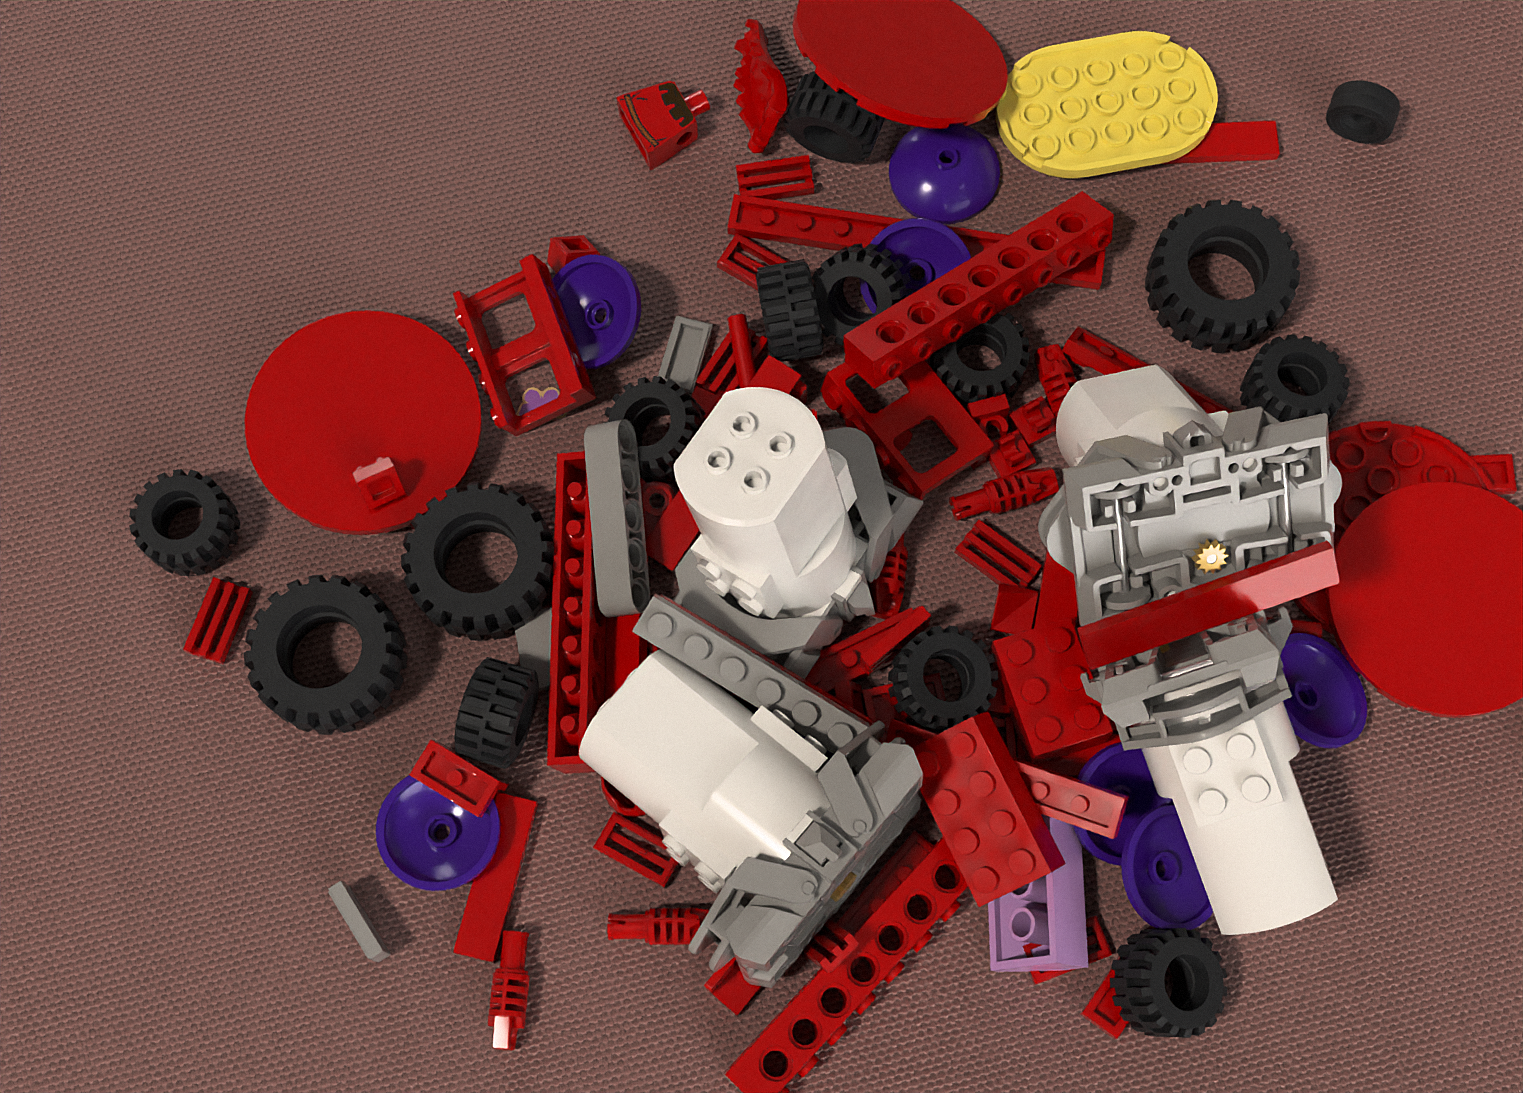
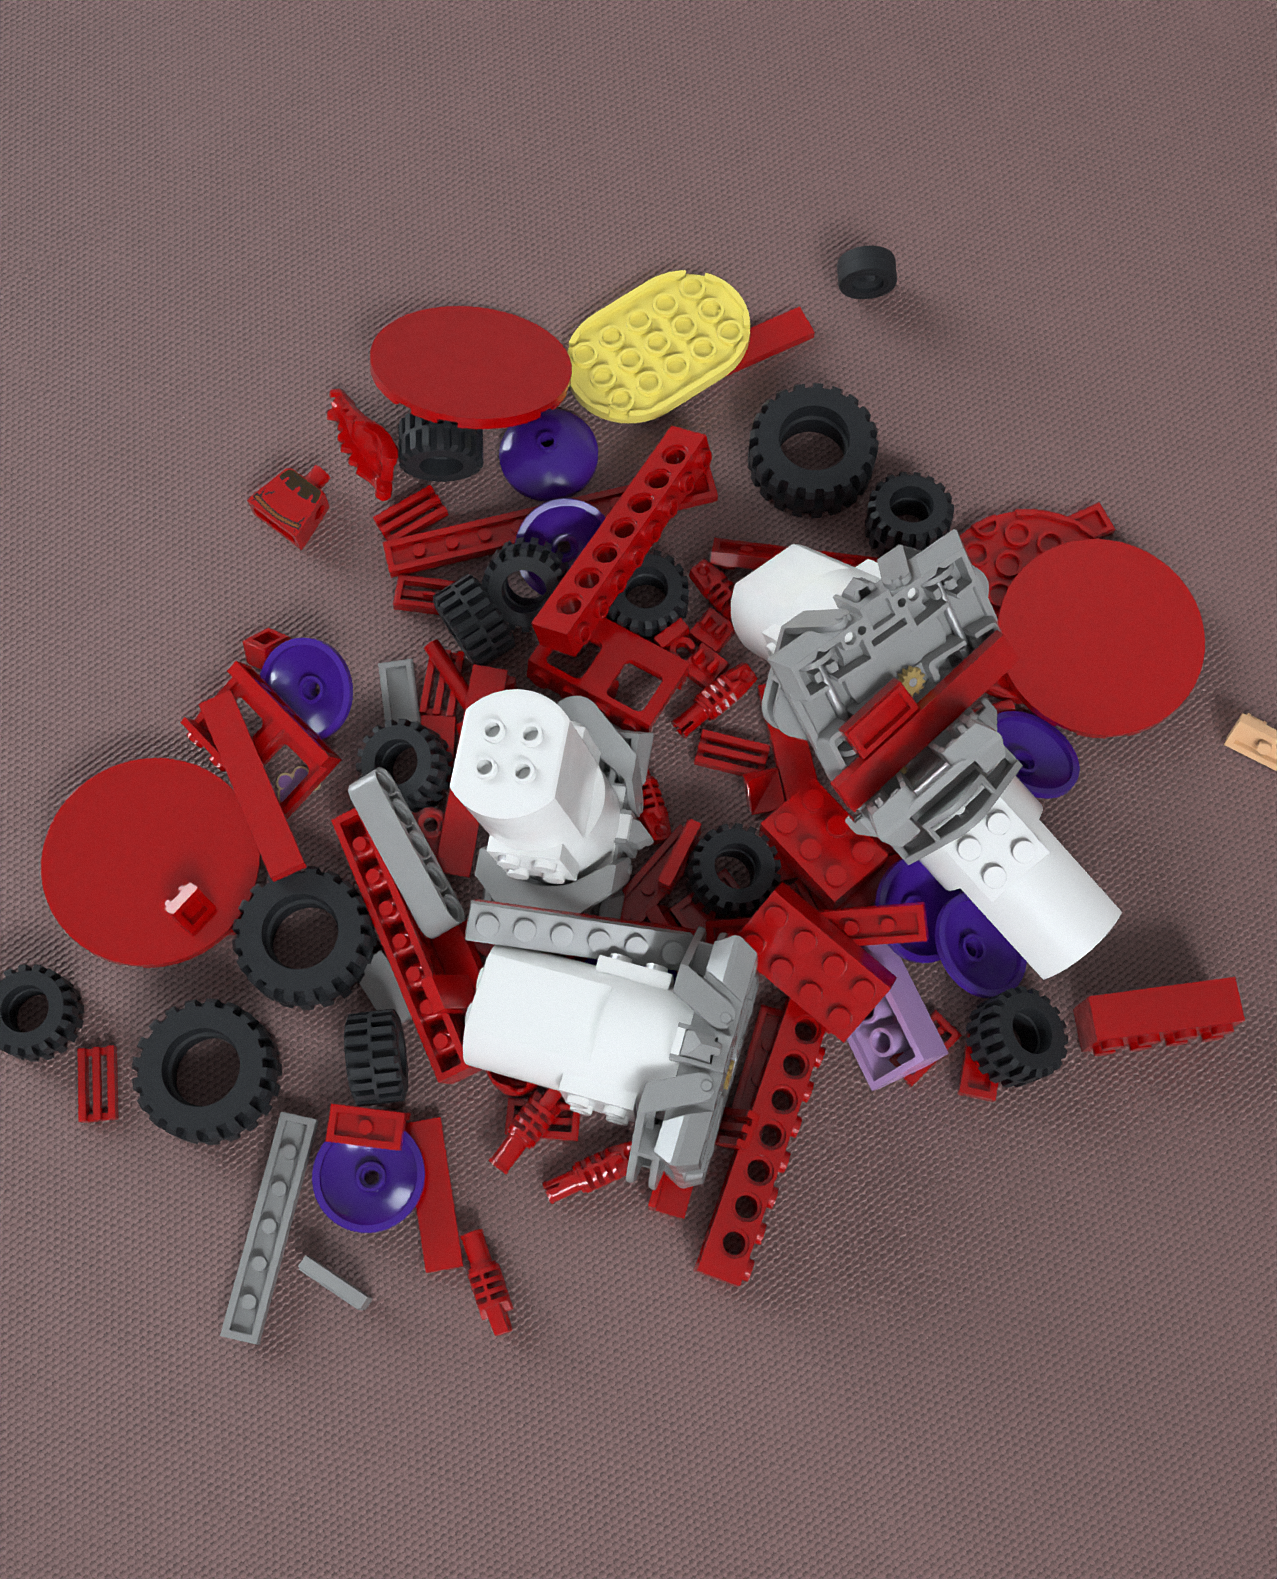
camera: 25 degrees left, 0 degrees up
(319, 838) = (269, 1228): none -> light grey plate
(493, 387) = (252, 786): none -> red tile
(594, 678) = (448, 993): none -> red tile
(616, 852) = (527, 1128): none -> red hinge
(1157, 581) = (878, 718): none -> red tile
(1334, 1026) = (1158, 1015): none -> red brick

